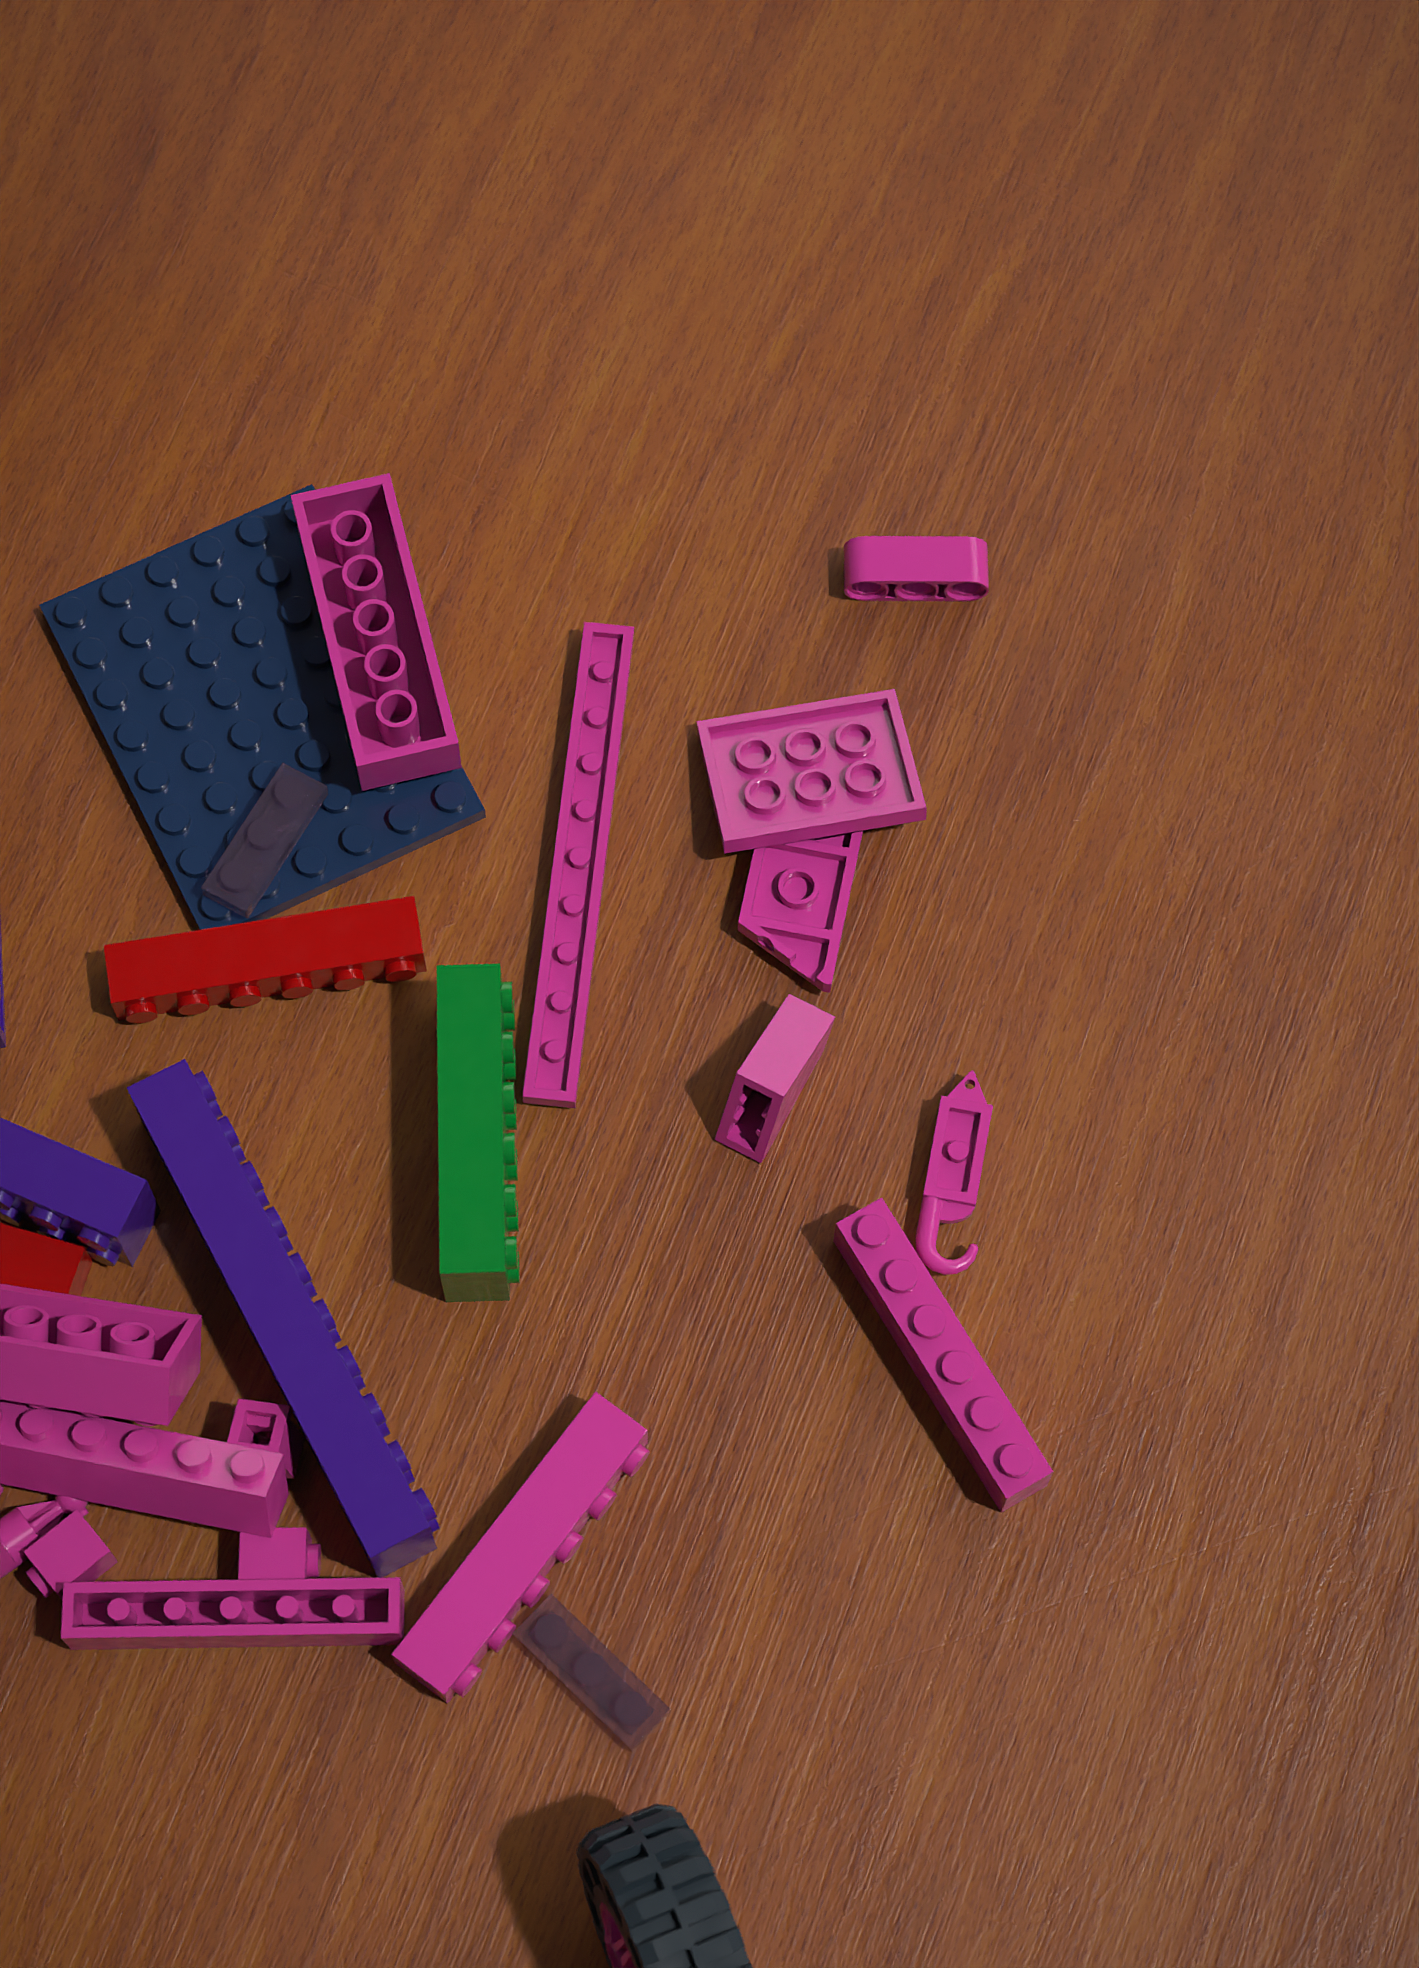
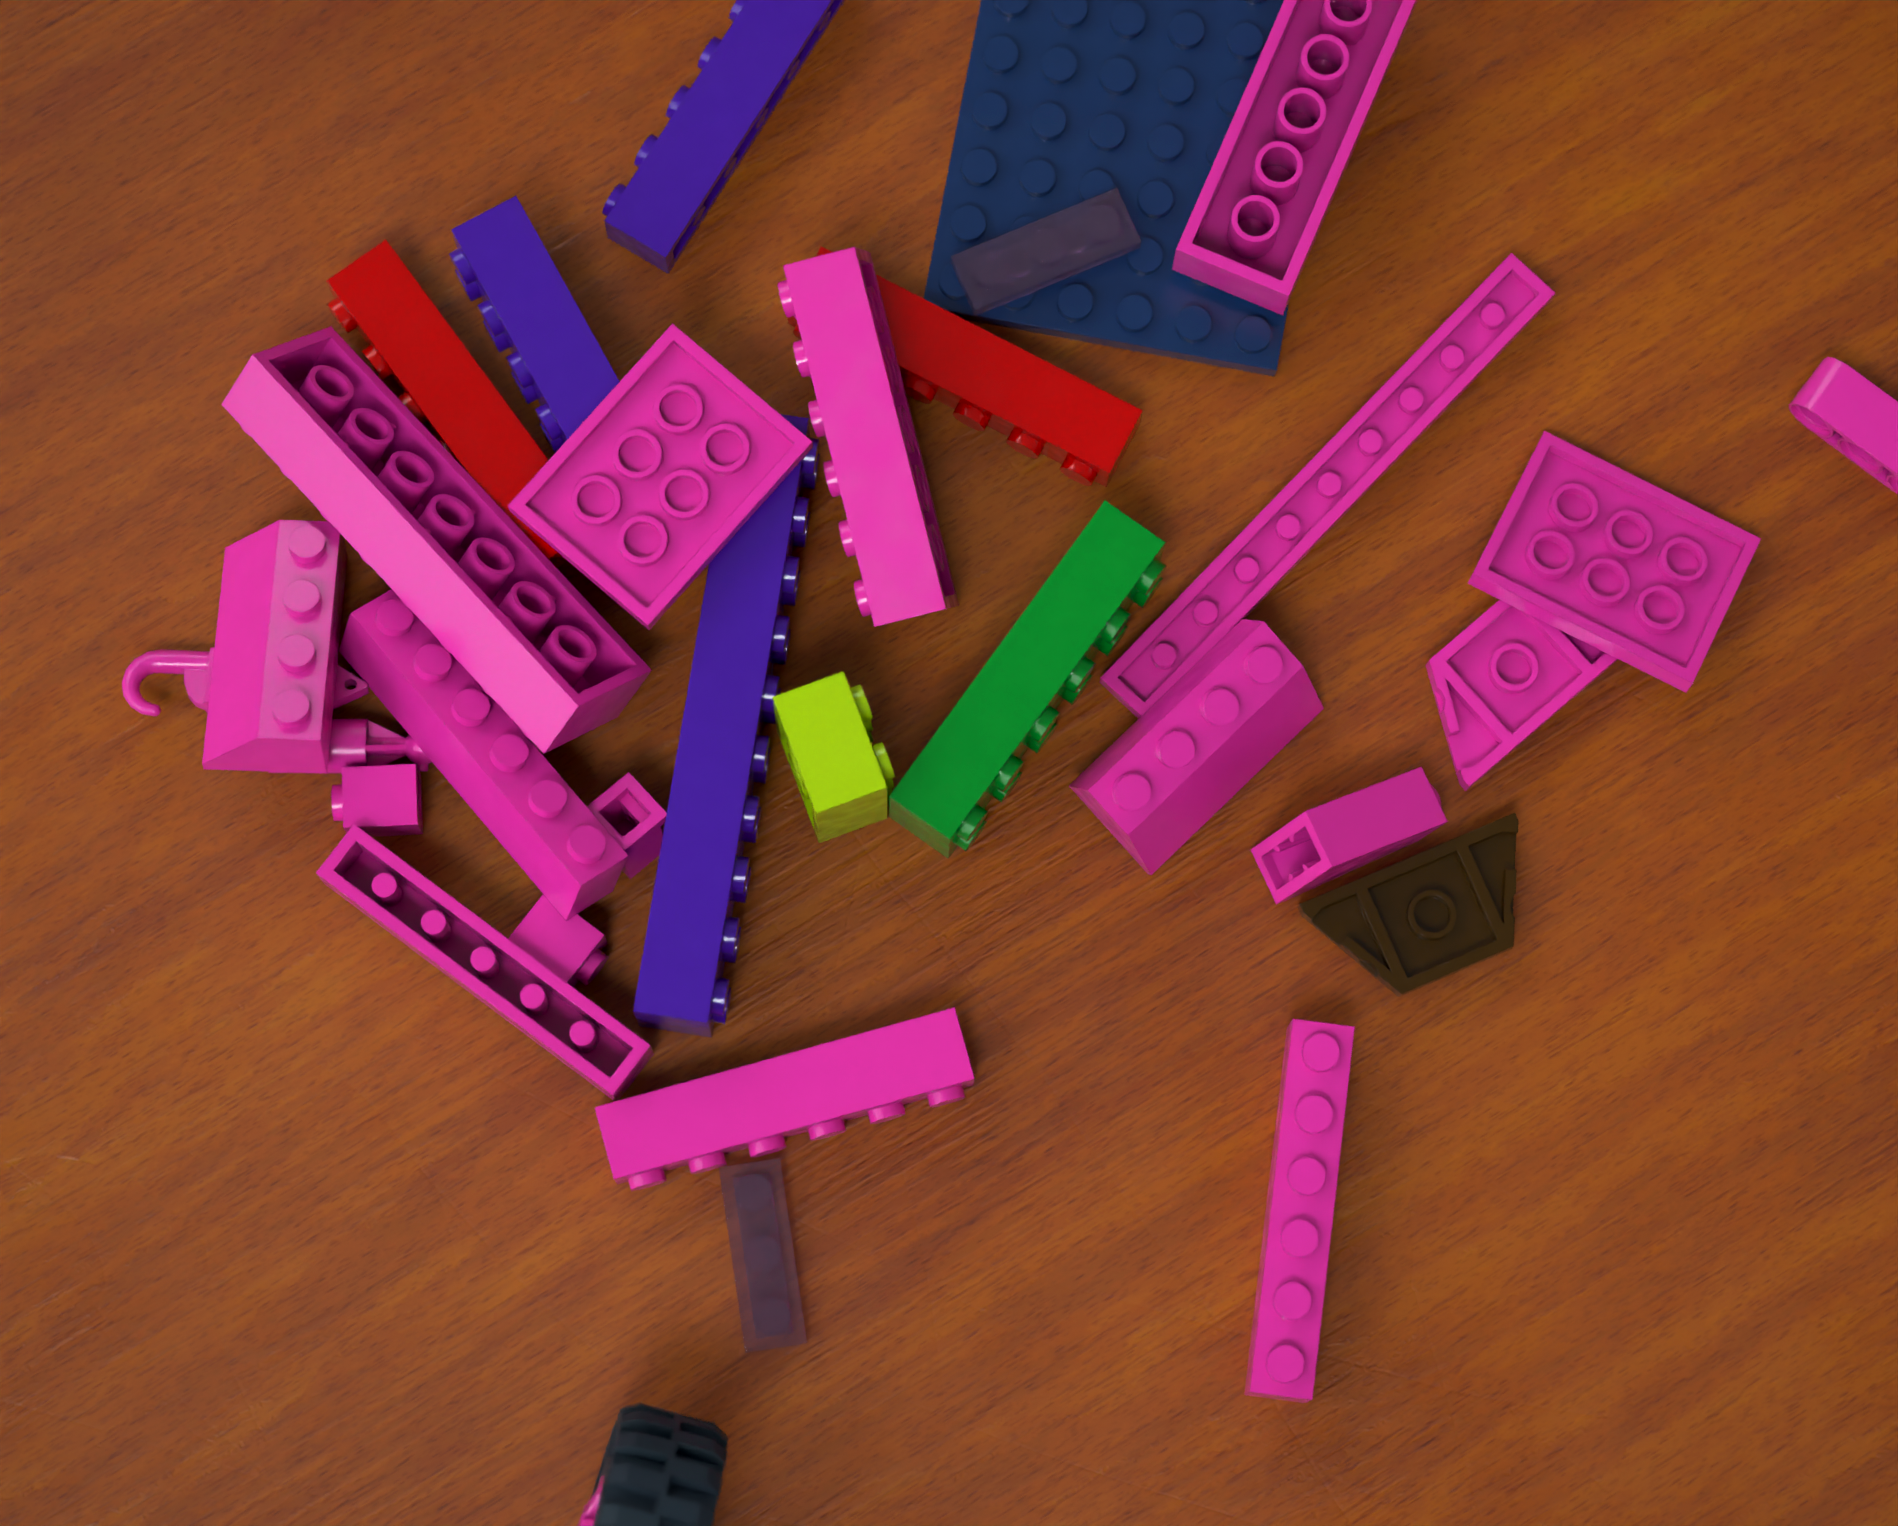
camera: 35 degrees right, 10 degrees up
(108, 1171) = (660, 476): none -> dark pink plate
(238, 1040) = (869, 436): none -> dark pink brick
(377, 1278) = (831, 755): none -> lime brick
(625, 1090) = (1199, 743): none -> dark pink slope
(866, 1090) = (1427, 910): none -> dark brown wing
(953, 1172) = (1447, 1049): dark pink plate -> none

